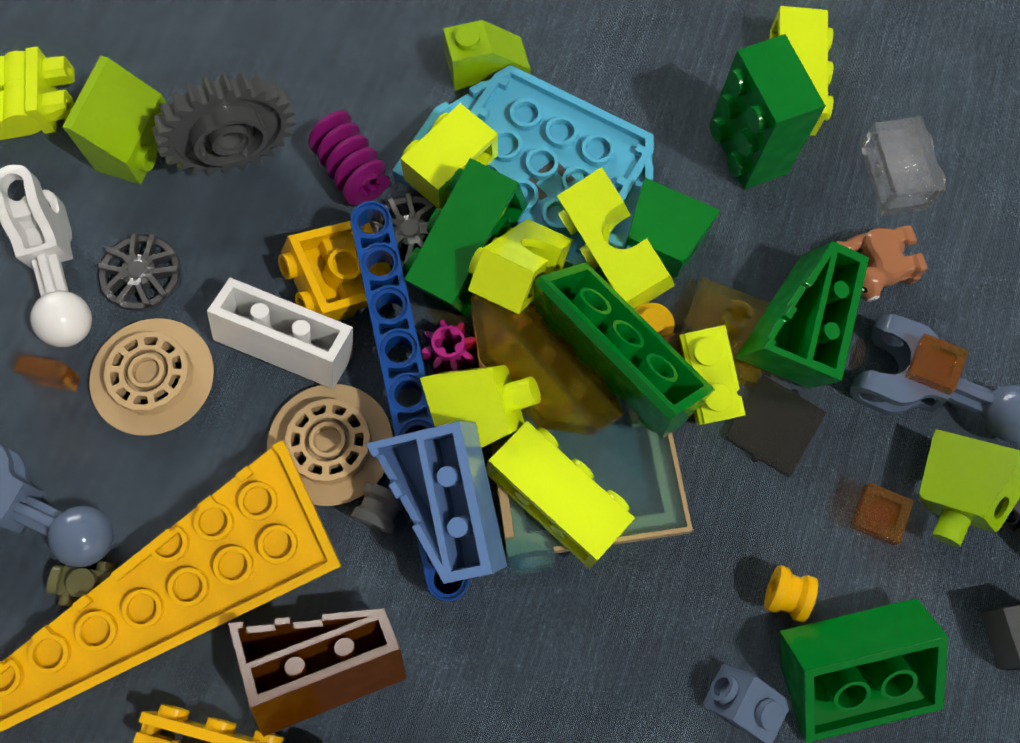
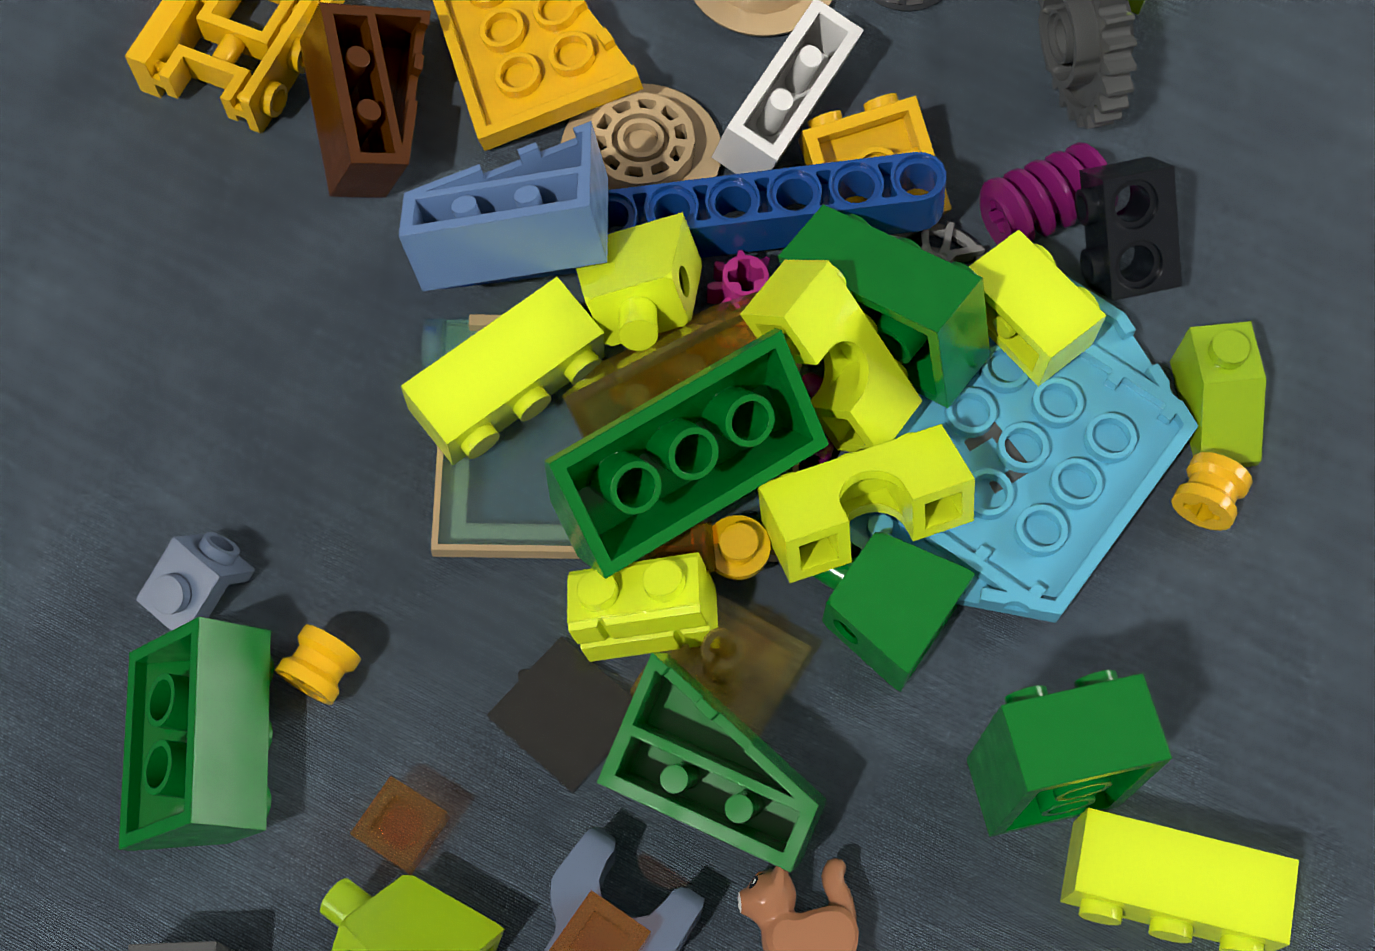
camera: 100 degrees right, 5 degrees down
(376, 99) = (1145, 223): none -> black brick
(552, 58) = (1212, 491): none -> yellow wheel

